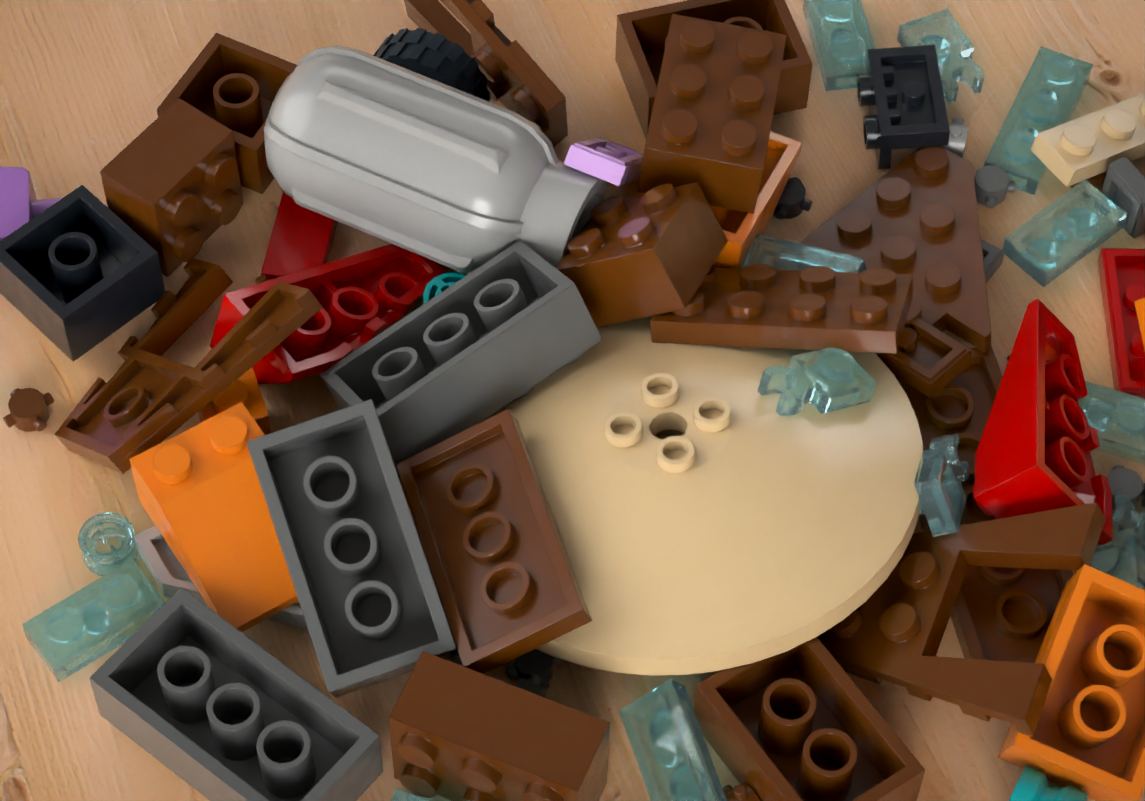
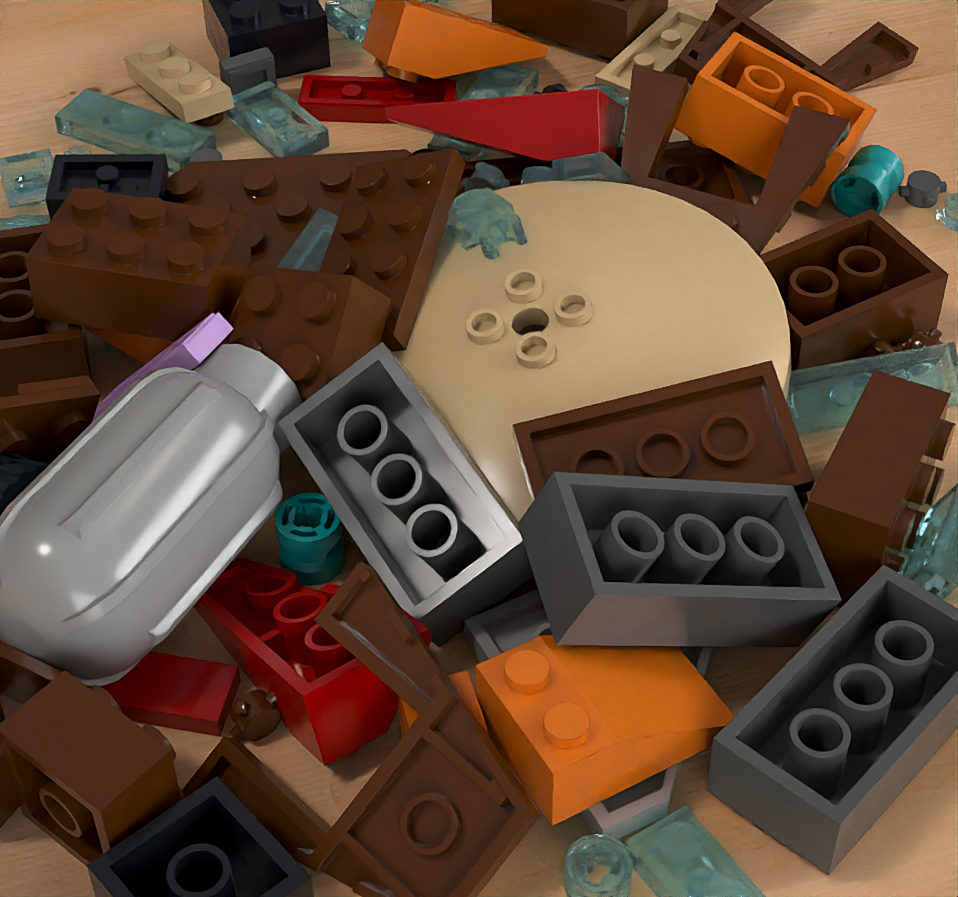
camera: 85 degrees left, 10 degrees down
(953, 412) = (486, 176): none -> clear light blue piece

